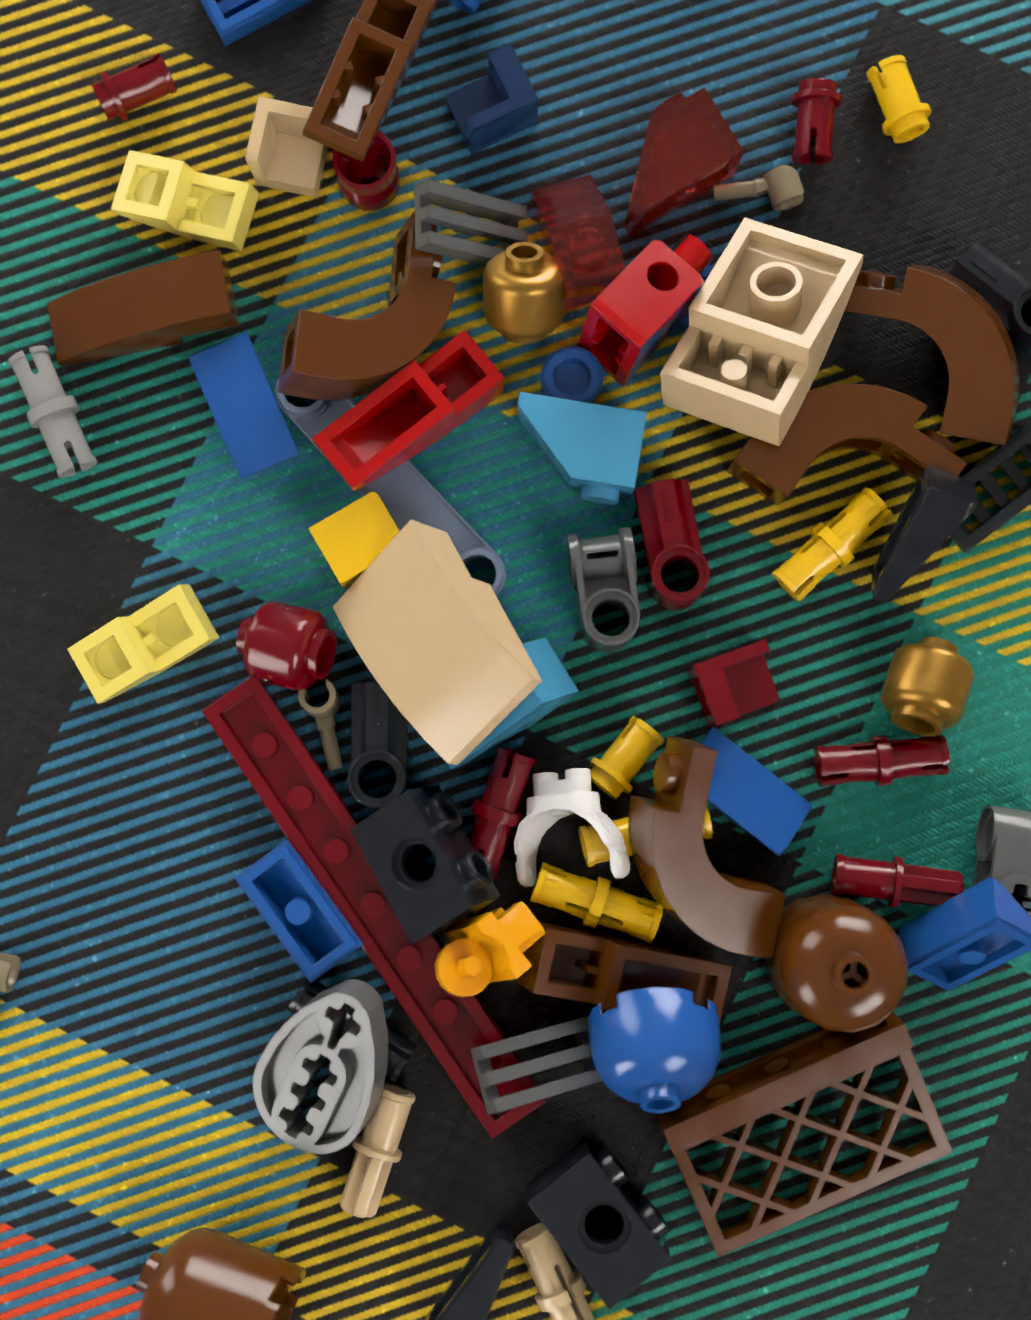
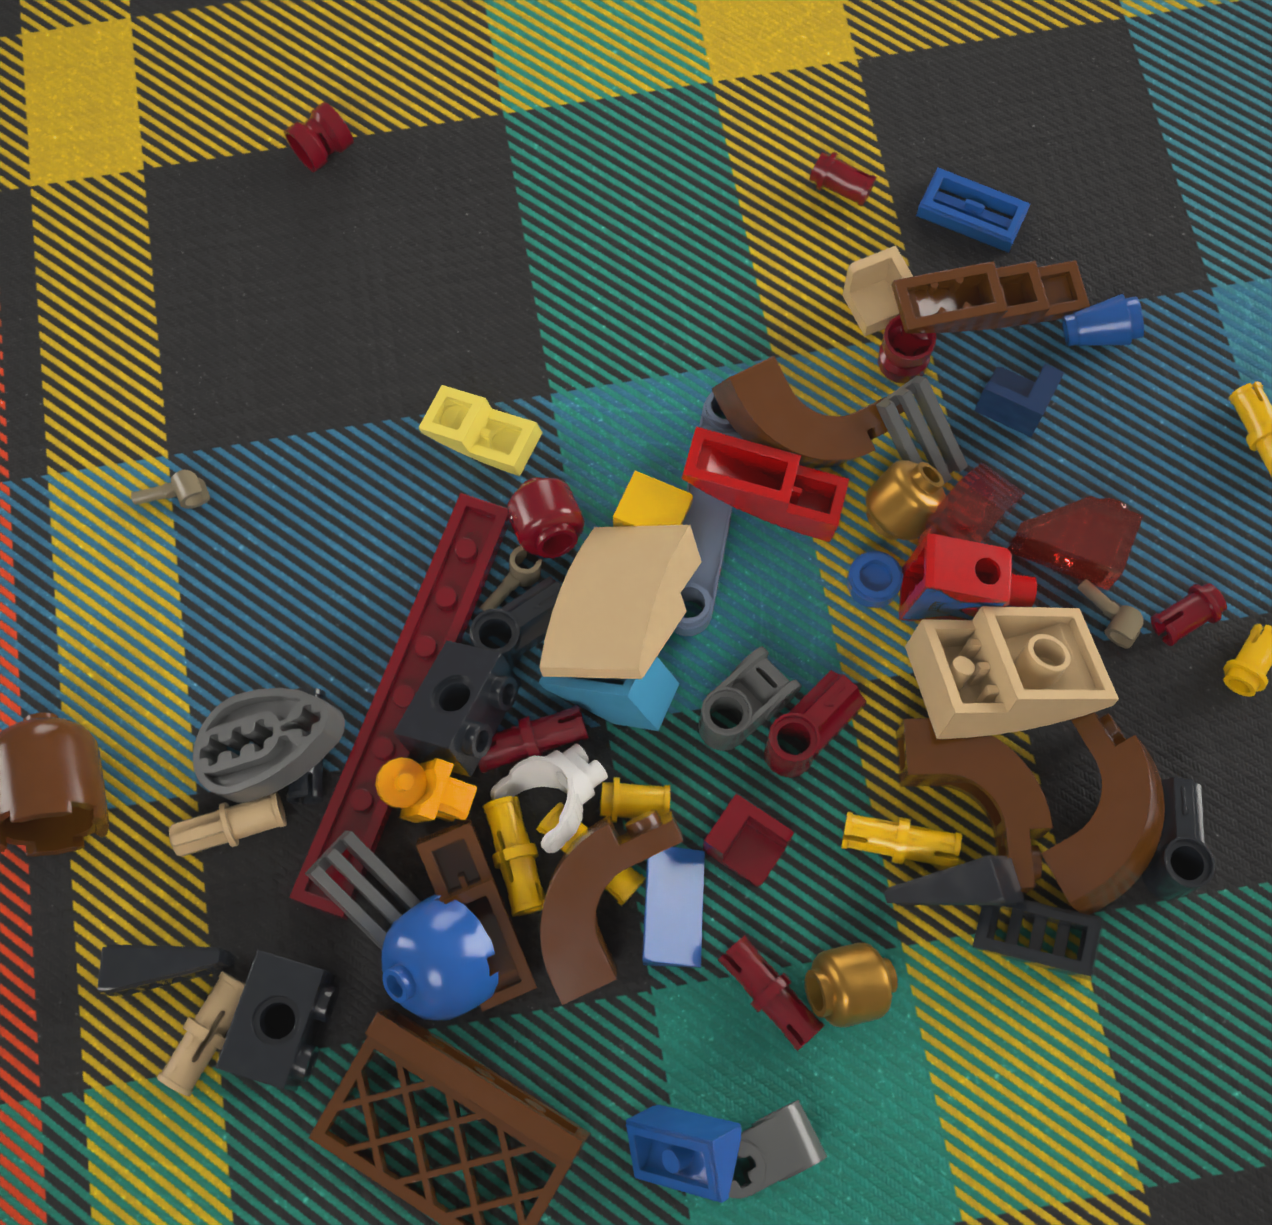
camera: 60 degrees right, 15 degrees down
(52, 411) = (593, 272): light grey pin -> none
(144, 309) = (705, 280): reddish brown slope -> none
(185, 202) = (795, 259): light yellow slope -> none
(243, 404) = (687, 380): blue slope -> none
(299, 910) = (365, 650): blue slope -> none
(586, 443) = (838, 618): dark azure slope -> none
(814, 946) = (597, 1091): reddish brown cylinder -> none
(894, 881) = (686, 1066): dark red axle -> none

